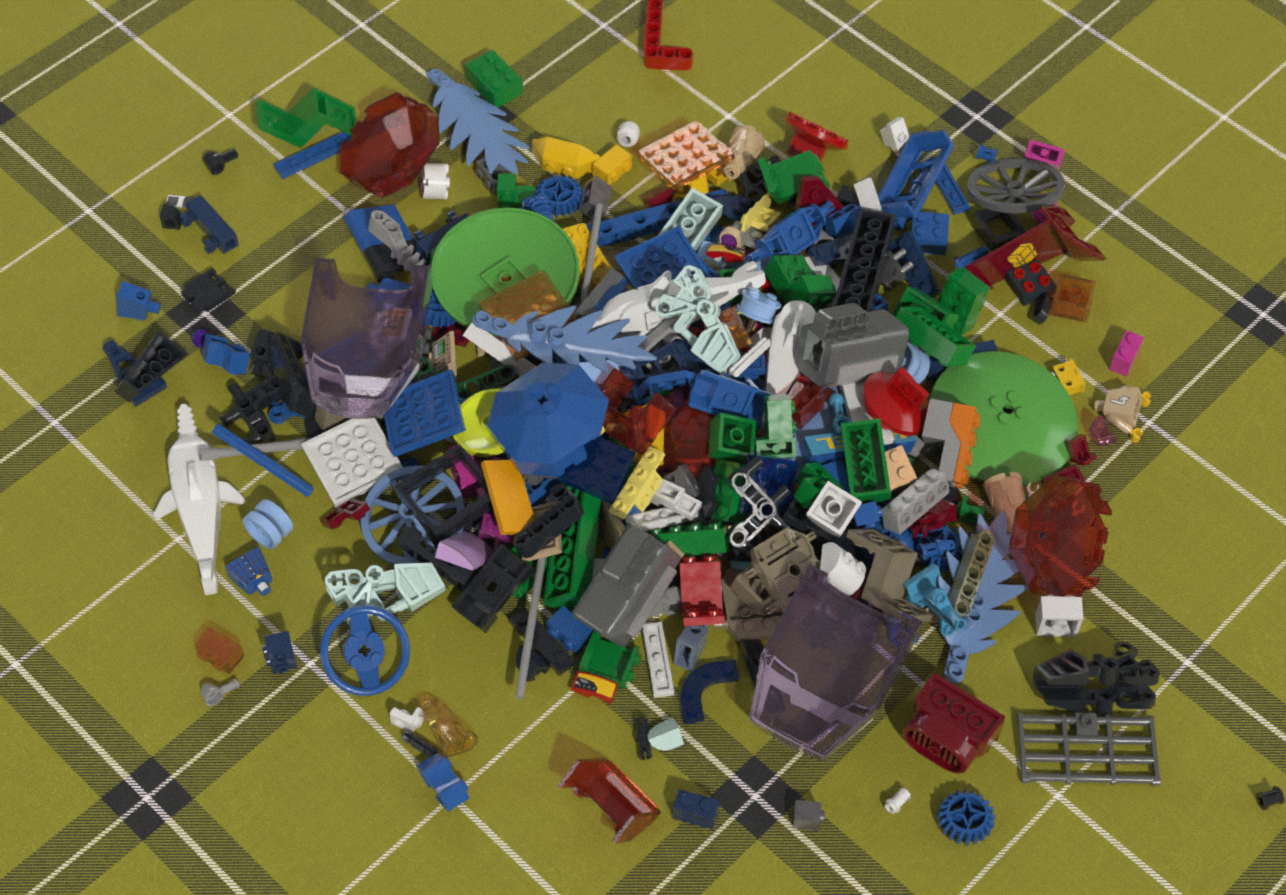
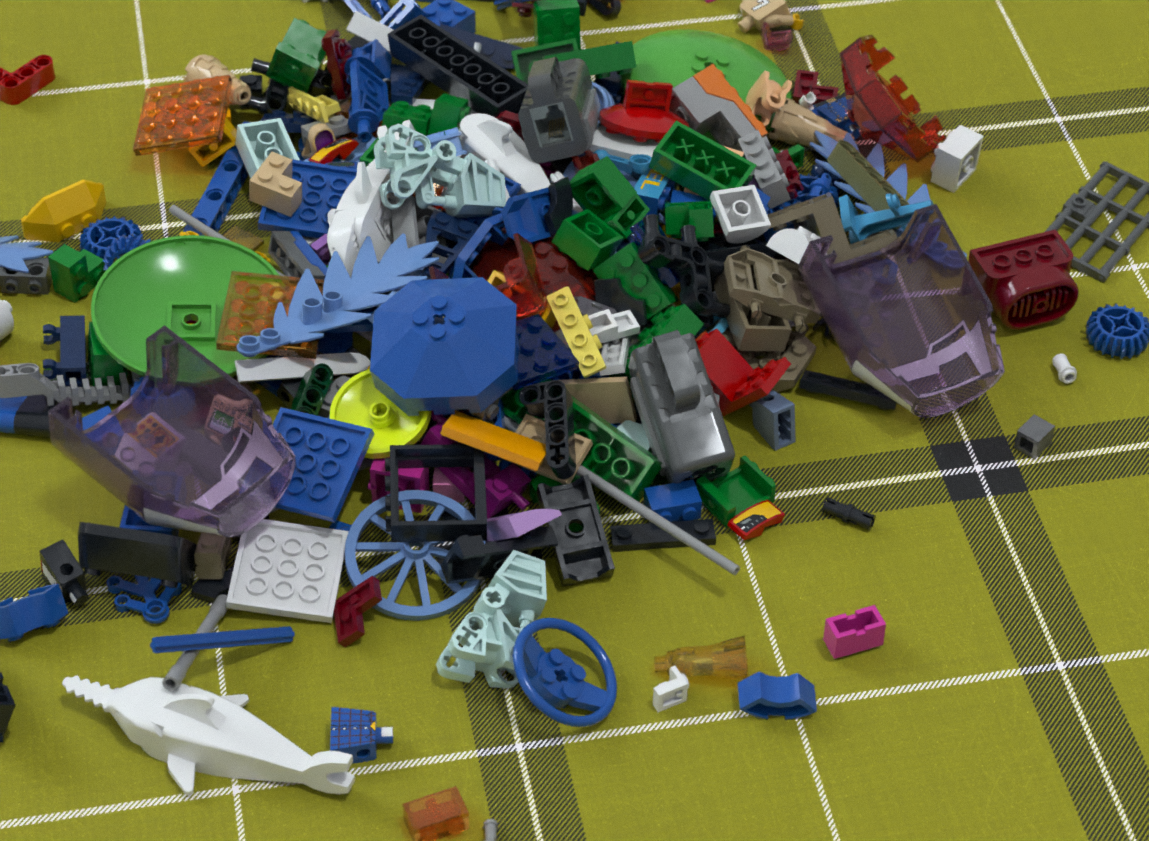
camera: 55 degrees left, 10 degrees down
(256, 400) = (121, 615): black pin -> none
(267, 524) = (310, 682): light blue wheel -> none
(279, 652) = (495, 754): dark blue brick -> none
(419, 743) = (709, 697): black axle -> none
(528, 797) = (854, 632): none -> dark pink brick
(536, 664) = (683, 557): black brick -> none
(595, 192) = (149, 215): flat silver brick -> none
(612, 164) = (118, 185): yellow brick -> none
(613, 794) = (912, 567): clear red windscreen -> none
(628, 134) = (91, 154): white head -> none
(645, 239) = (274, 186): none -> tan brick
(657, 659) = (772, 460): white tile -> none
(658, 197) = (198, 174): dark red brick -> none
(665, 735) = (860, 491): light aqua brick -> none
(695, 809) = (967, 512): dark blue brick -> none
(698, 682) = (817, 445): clear blue plate -> none
(744, 403) = (560, 205): none -> black tile
(812, 137) = (253, 31): red bracket -> none
(1003, 461) = (767, 97): none -> light nougat piece
(1064, 676) = (1051, 160): black piece -> none
(1069, 377) = (698, 21): yellow piece -> none
(1079, 450) = (784, 61): dark red bracket -> none

